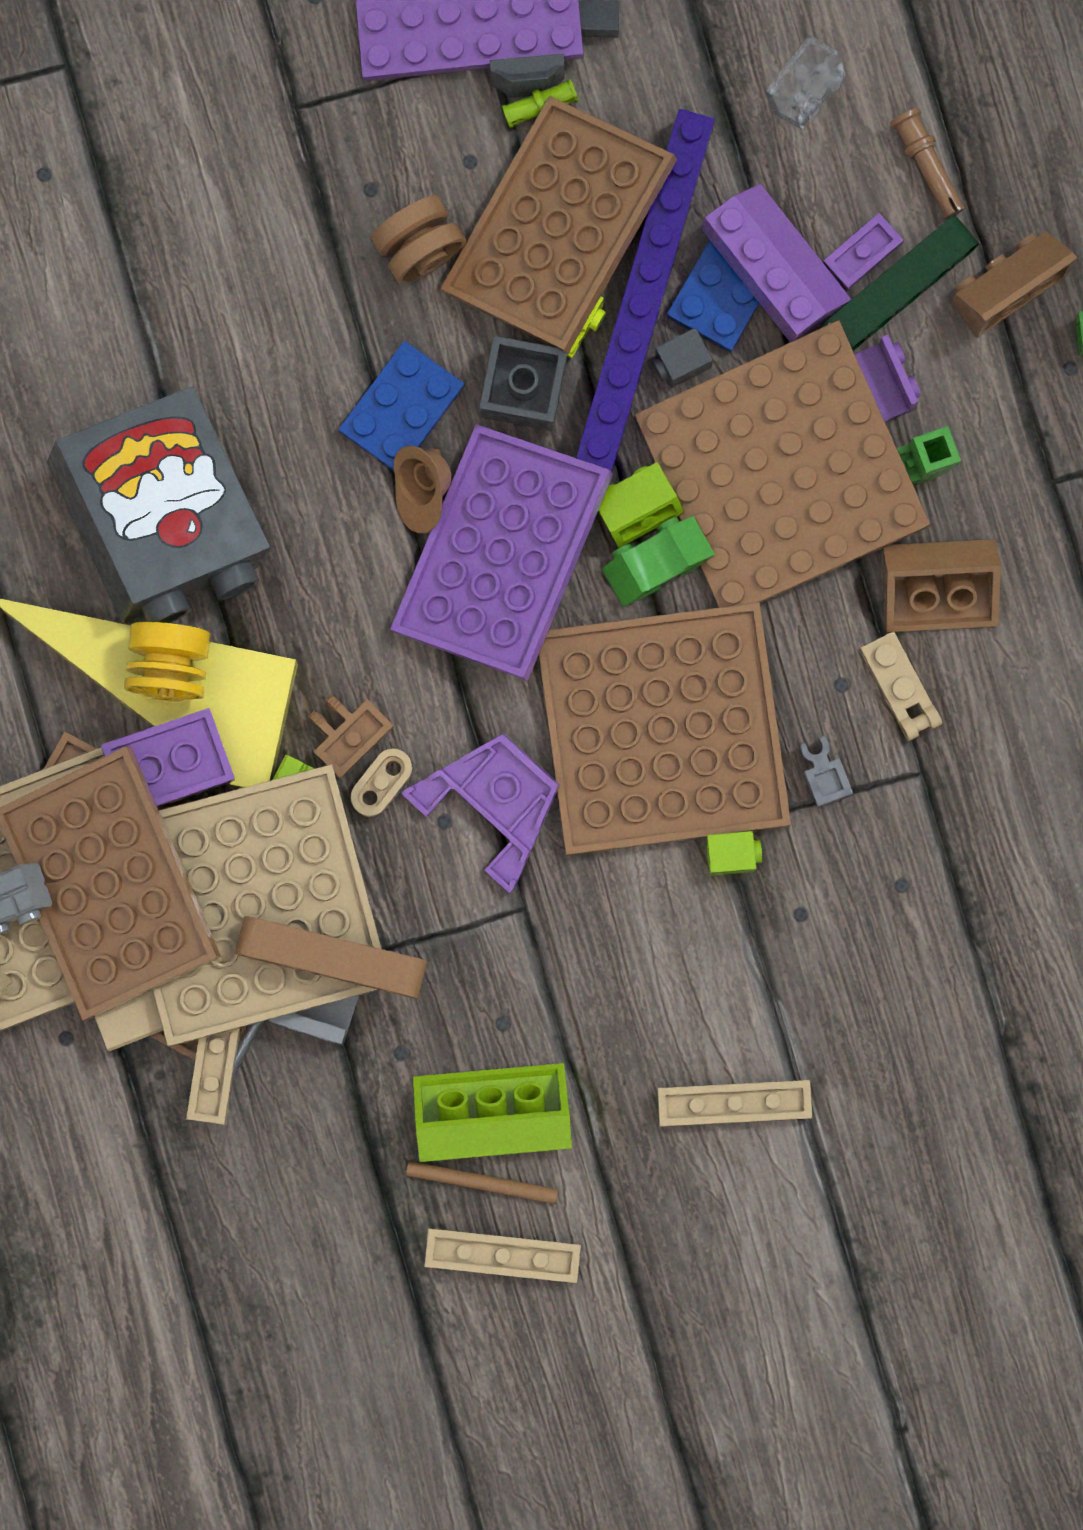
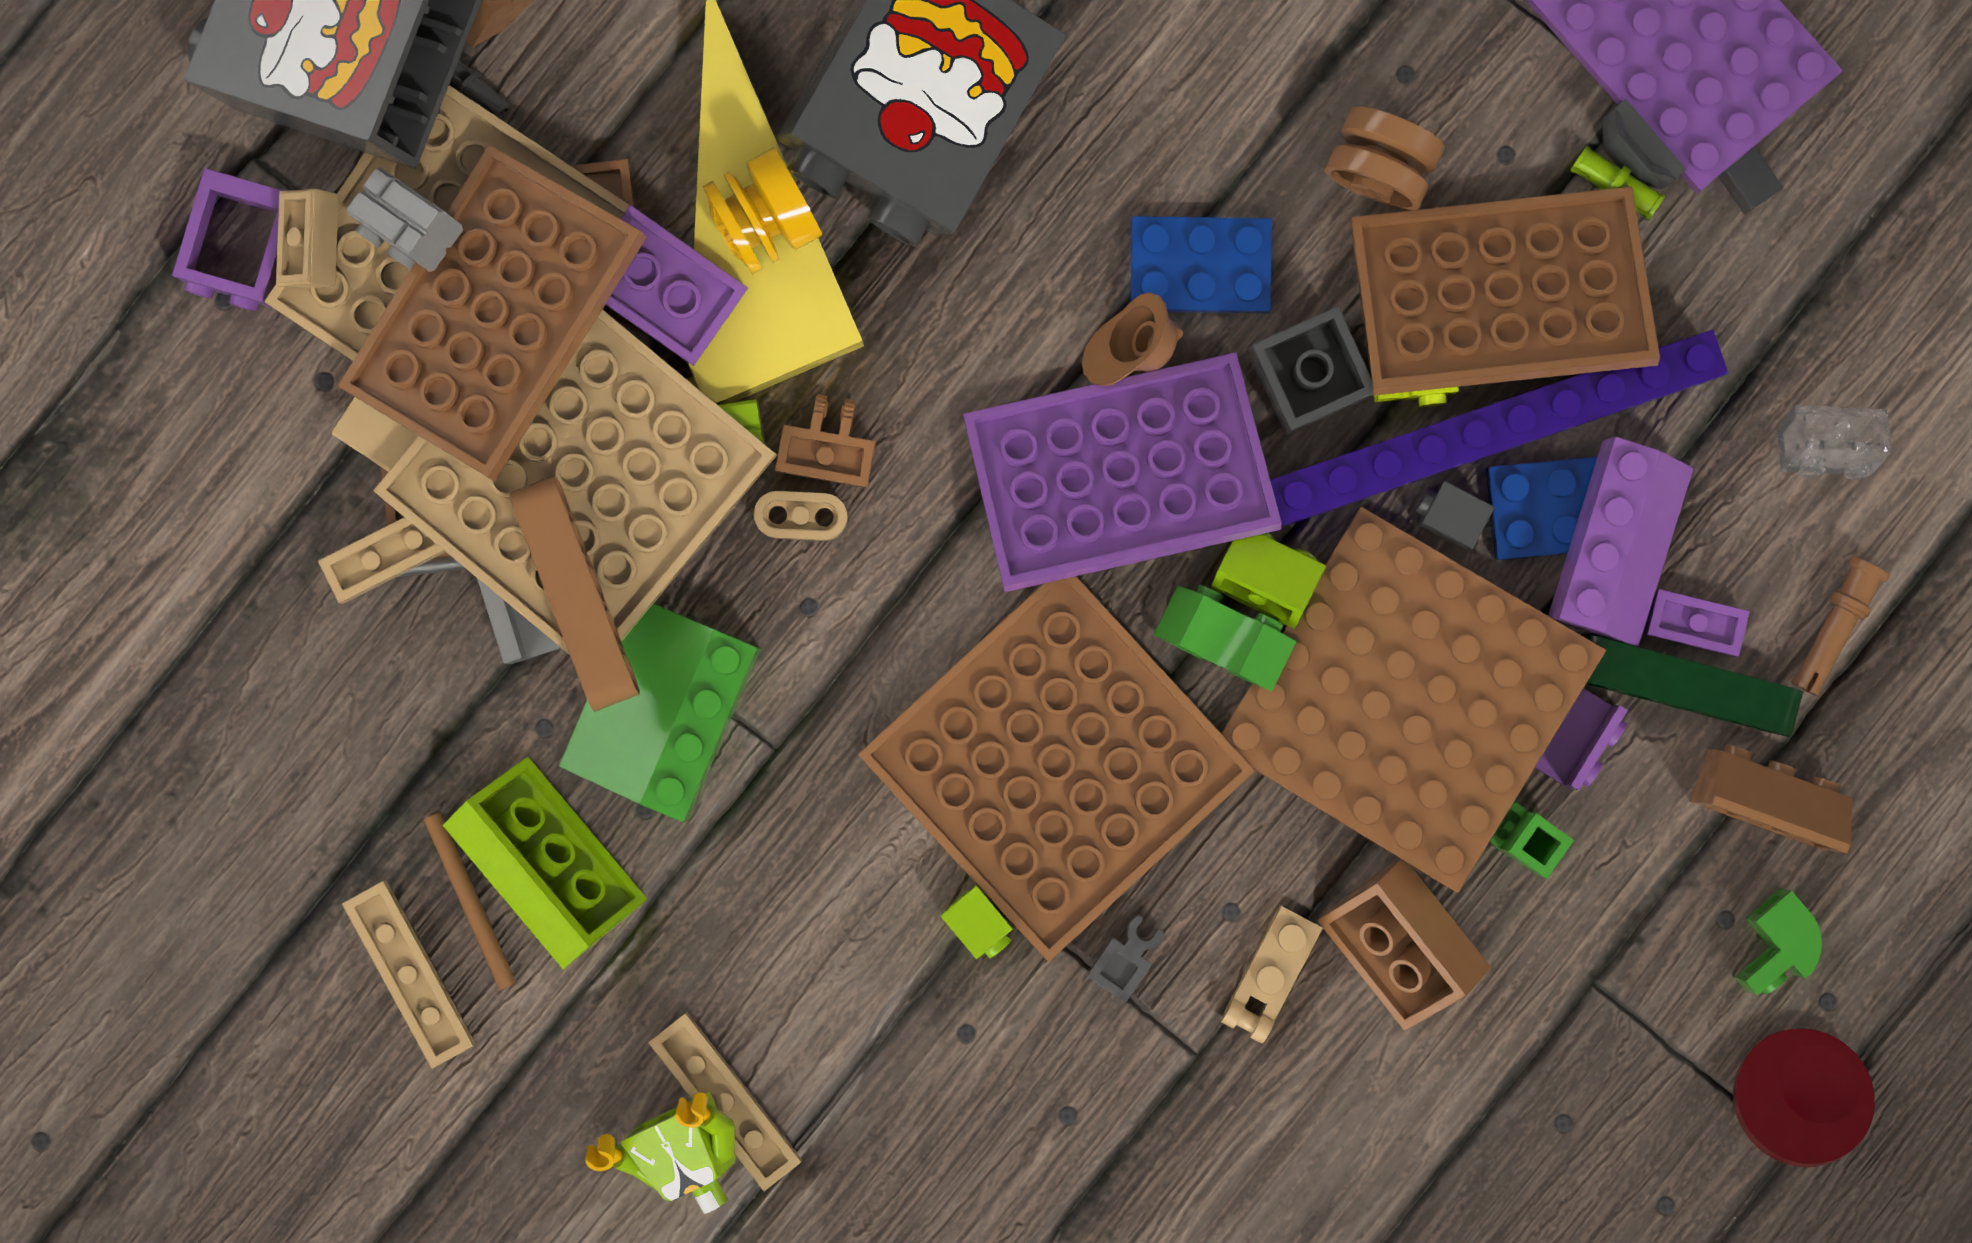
camera: 50 degrees right, 5 degrees up
(466, 973) = (669, 735): none -> bright green slope
(505, 789) = (880, 644): medium lavender wing -> none
(745, 1155) = (675, 1152): none -> lime torso

